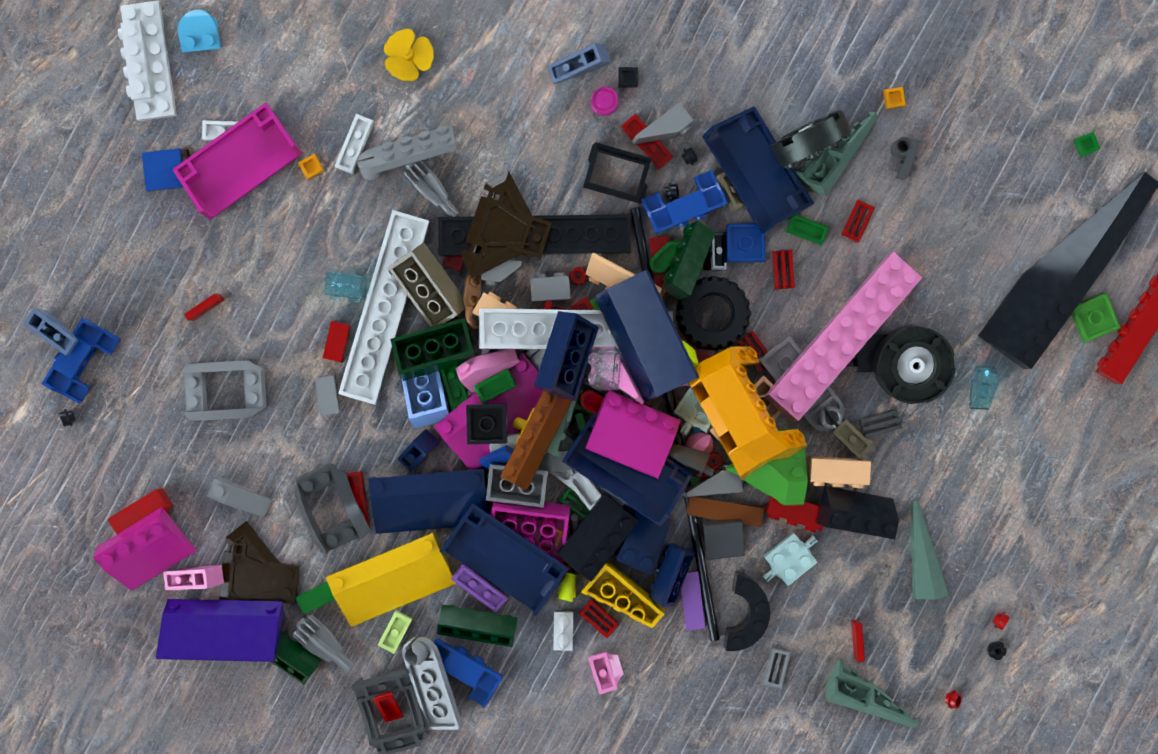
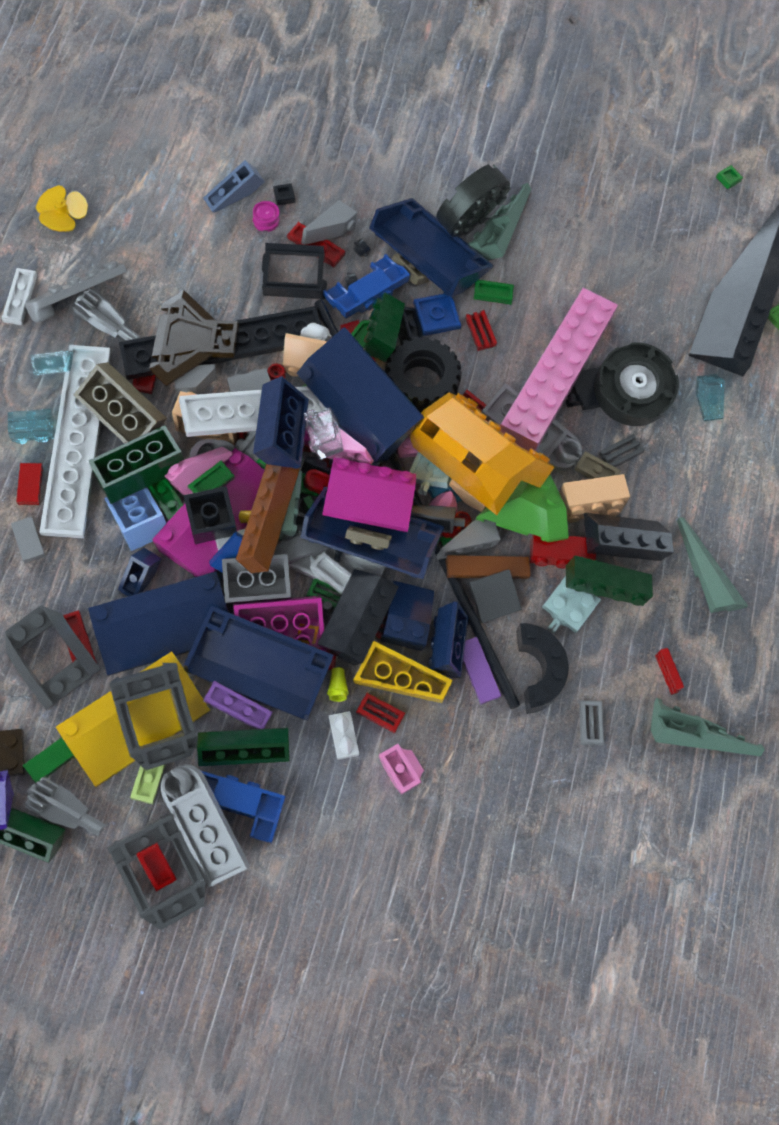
camera: 25 degrees left, 20 degrees down
(374, 224) = (52, 362): none -> clear light blue slope
(407, 564) = (145, 684): none -> dark grey wedge
(471, 297) = (167, 400): medium nougat piece -> none
(621, 254) = (316, 332): none -> white head
(621, 475) = (375, 539): none -> dark tan plate
(828, 552) = (609, 581): none -> dark green brick
(851, 236) = (537, 289): red tile -> none
(894, 98) = (541, 170): light orange tile -> none
(903, 167) = (565, 208): dark grey plate -> none

